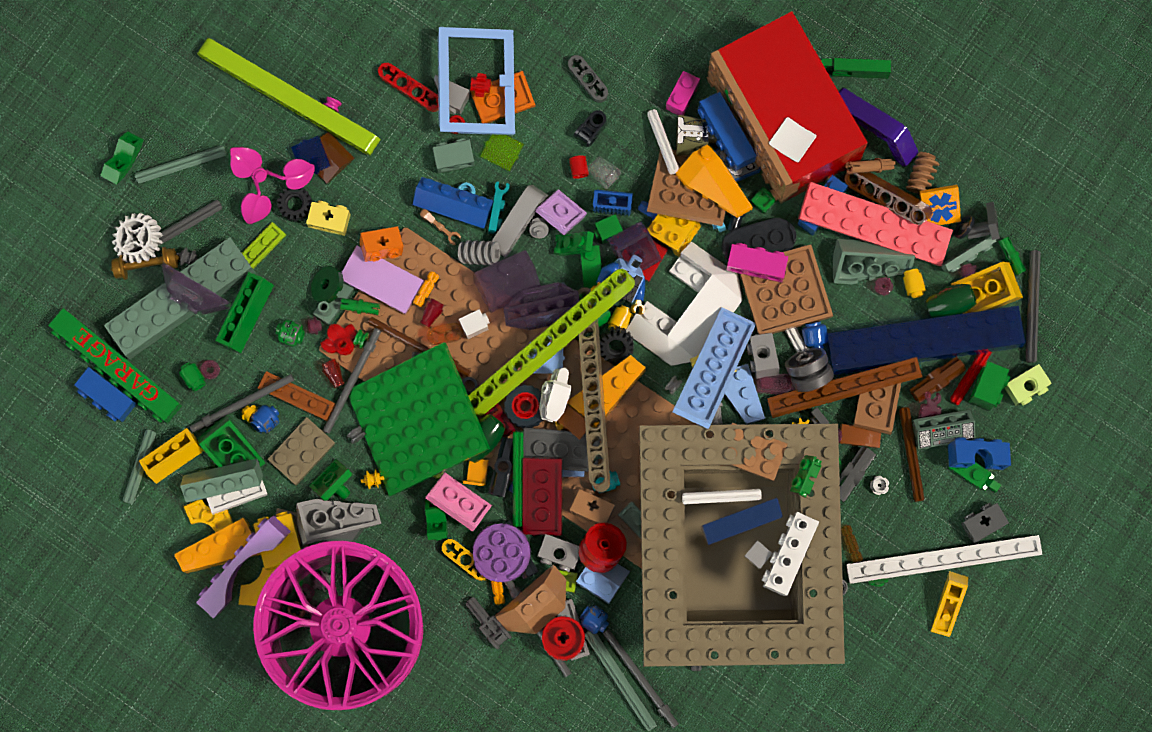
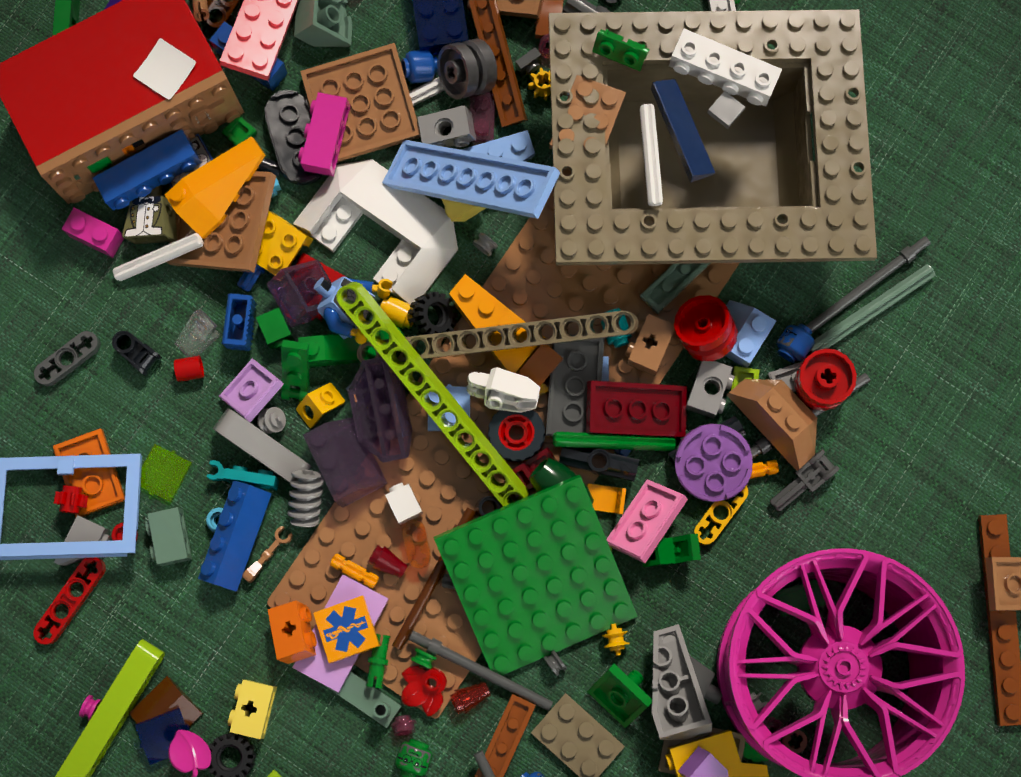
camera: 90 degrees left, 0 degrees up
(318, 287) = (342, 718): dark green tile -> none
(382, 283) = (346, 629): none -> light orange tile
(552, 263) = (320, 401): none -> yellow bracket

